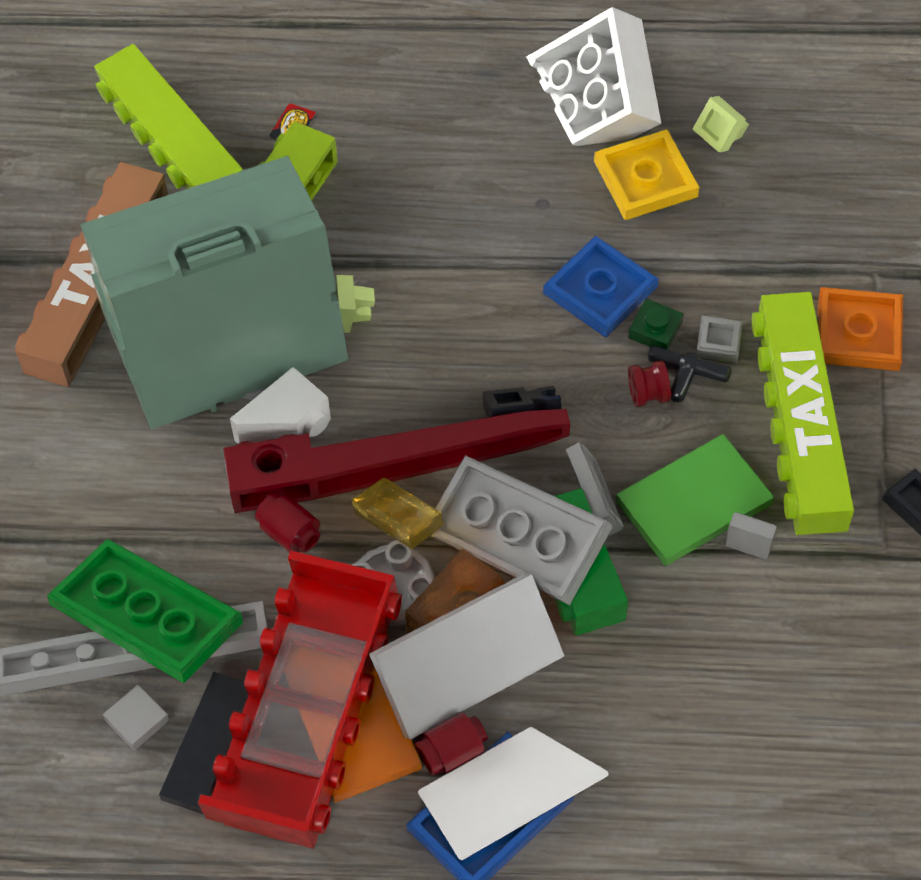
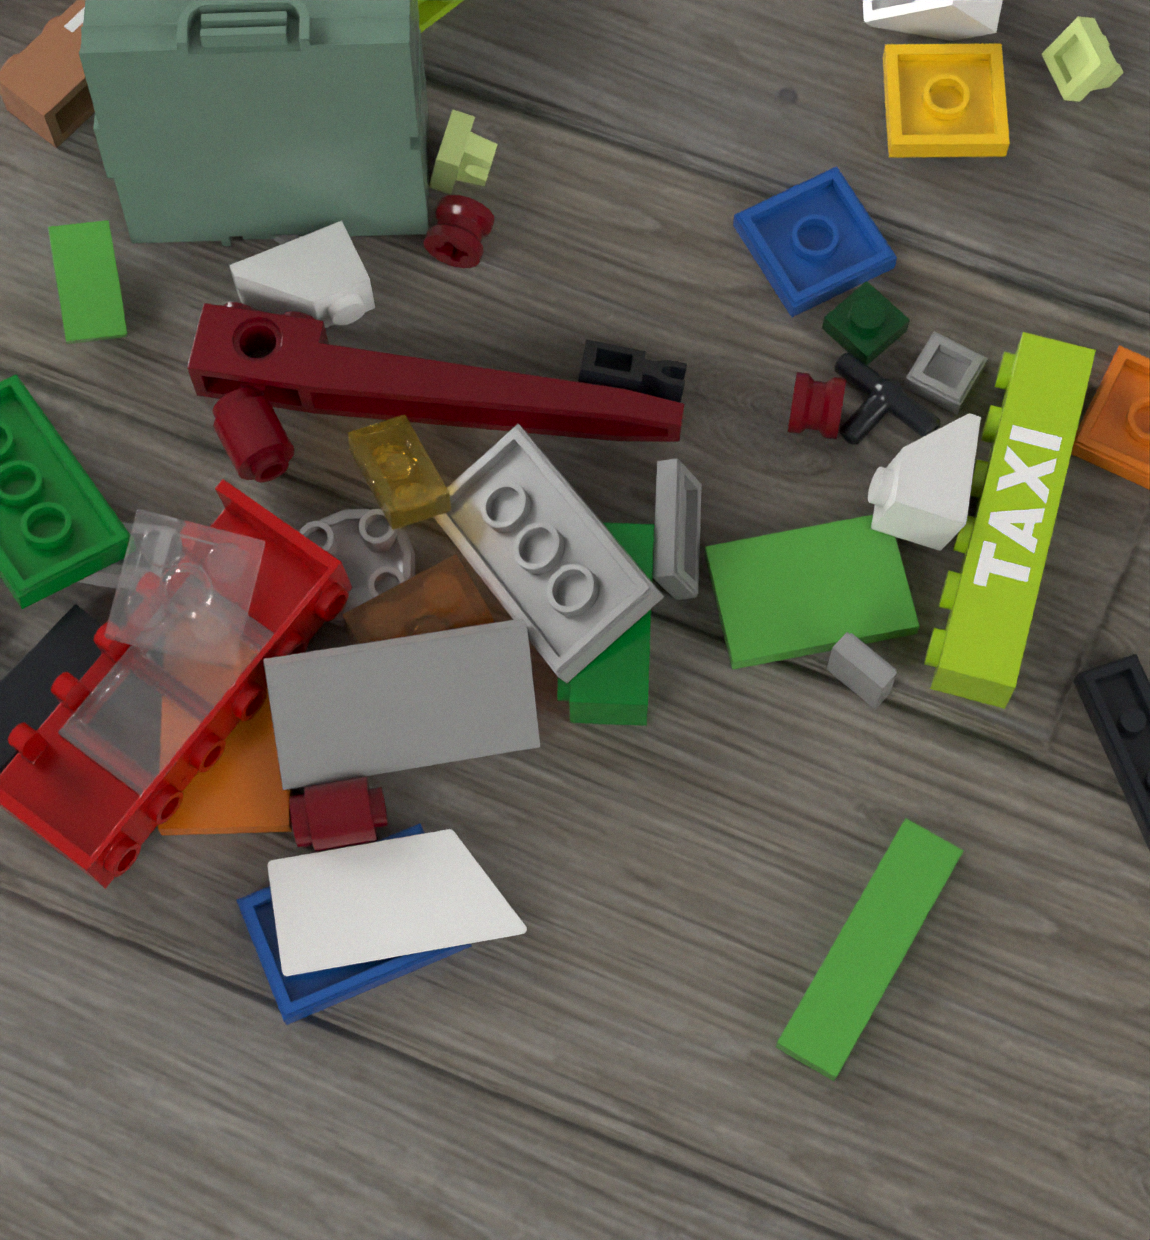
camera: 20 degrees right, 10 degrees up
(132, 462) = (87, 282): none -> bright green slope
(295, 629) = (185, 589): none -> clear plate
(369, 351) = (459, 231): none -> dark red wheel
(743, 409) = (927, 486): none -> white slope
(831, 708) = (869, 949): none -> bright green tile

